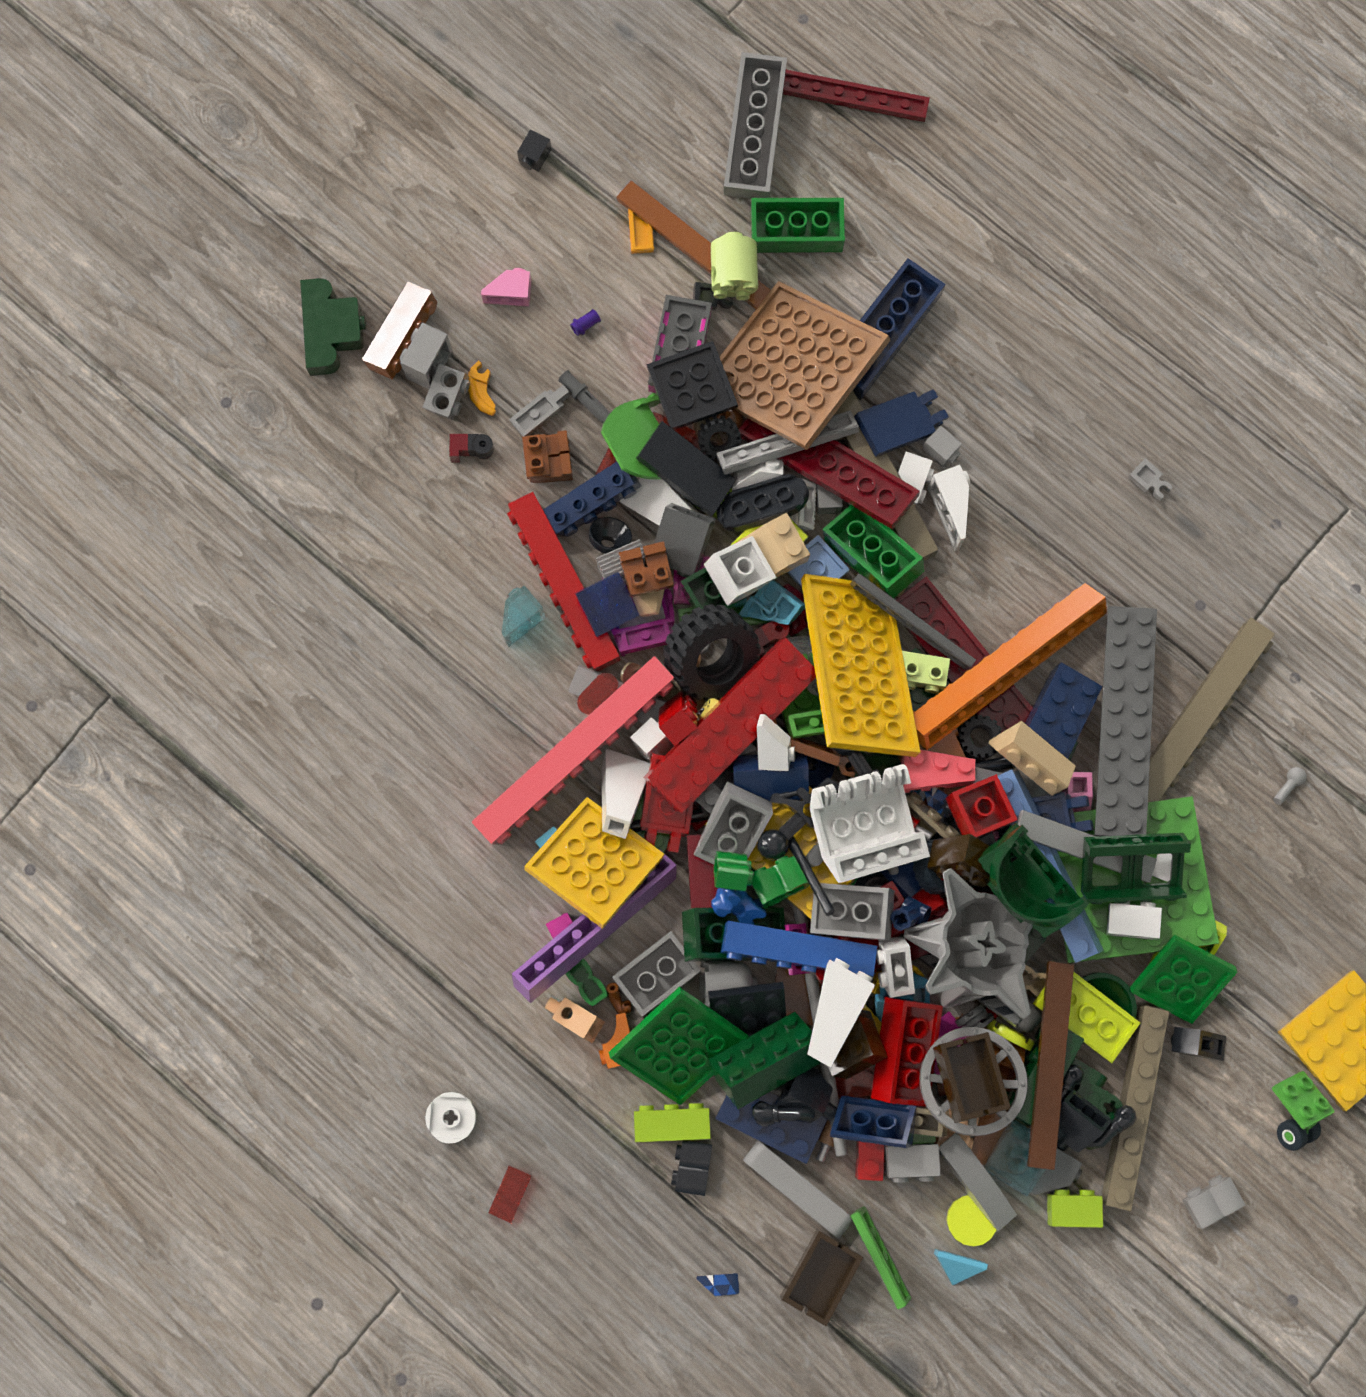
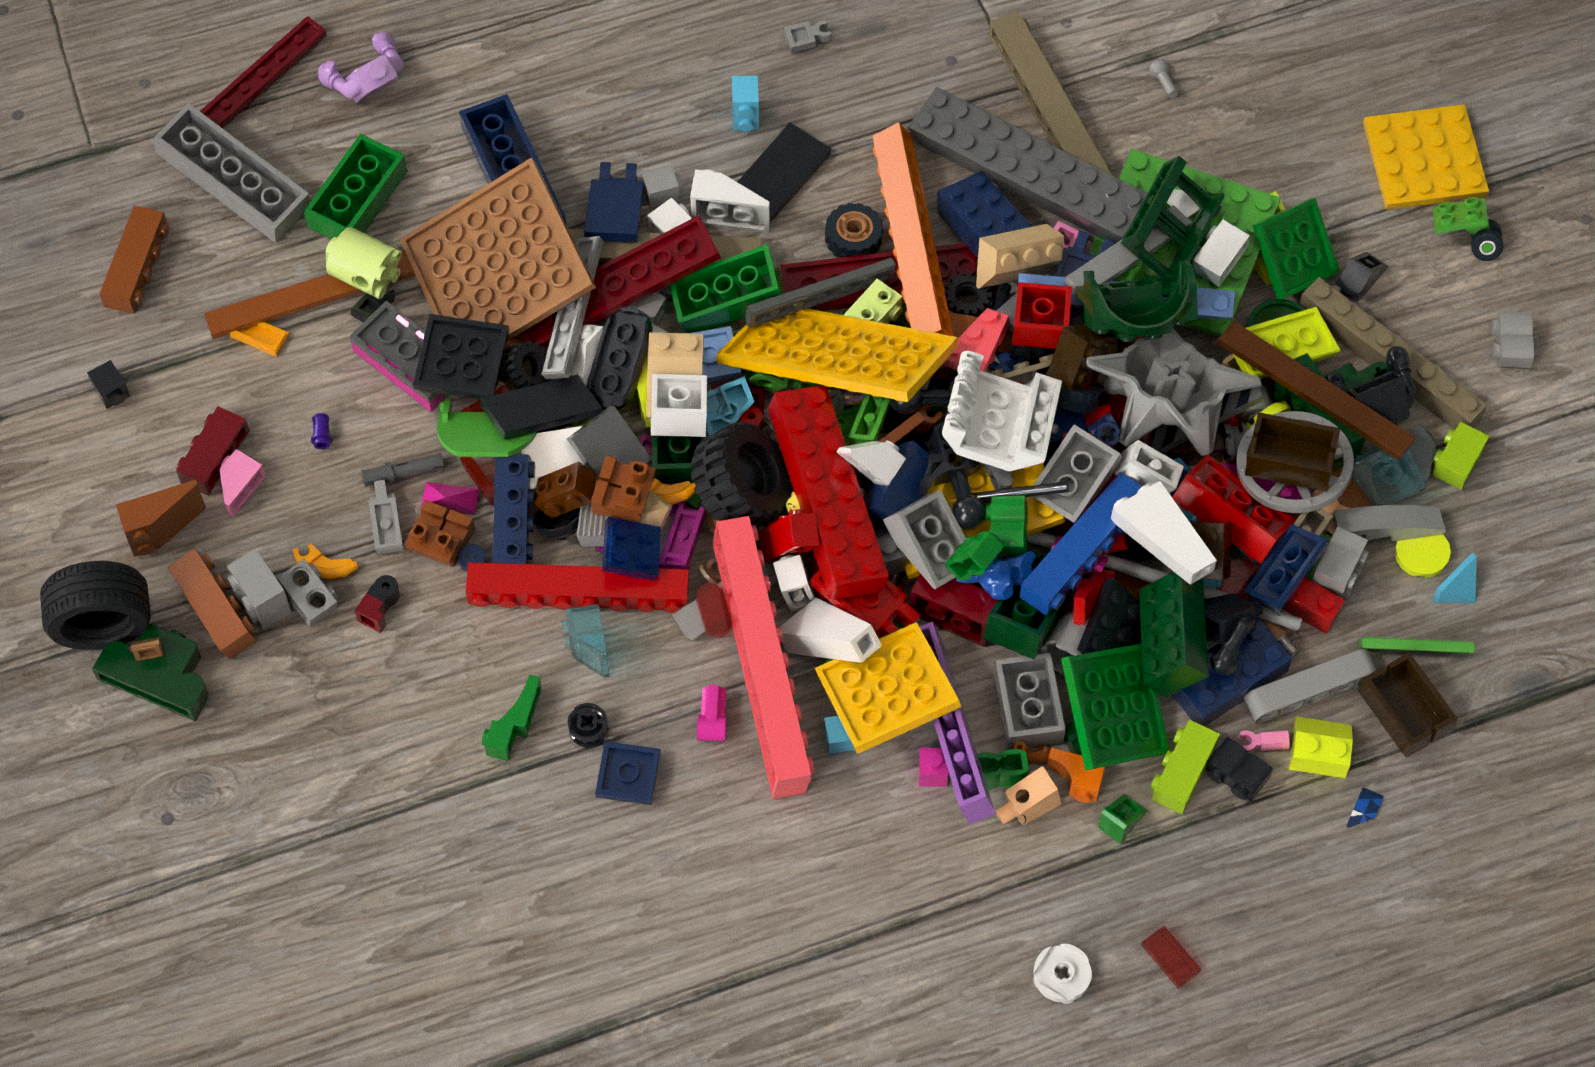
camera: 60 degrees left, 15 degrees down
(334, 307) = (147, 648): none -> medium nougat slope
(340, 250) = (95, 605): none -> black tyre
(411, 597) = (516, 722): none -> green slope
(435, 705) = (628, 773): none -> dark blue plate
(442, 251) = (159, 516): none -> dark orange slope
(457, 654) = (587, 724): none -> black wheel
(509, 744) = (712, 719): none -> dark pink piece
(531, 254) = (219, 438): none -> dark red brick
(545, 492) = (471, 553): none -> dark blue tile
(586, 447) = (452, 497): none -> dark pink slope
(604, 1096) = (1121, 817): none -> green slope
(627, 527) = (565, 489): none -> reddish brown brick
(646, 104) = (134, 259): none -> dark orange brick
(671, 602) = (673, 493): none -> light orange piece
(731, 1177) = (1266, 740): none -> bright pink bar
(752, 1222) = (1321, 747): none -> neon yellow slope
(764, 974) = (1087, 595): none -> red slope
(903, 176) = (369, 77): none -> lavender torso
(1001, 606) = (851, 219): none -> black wheel
(1012, 529) = (785, 167): none -> black tile
(1052, 468) = (745, 103): none -> medium azure brick

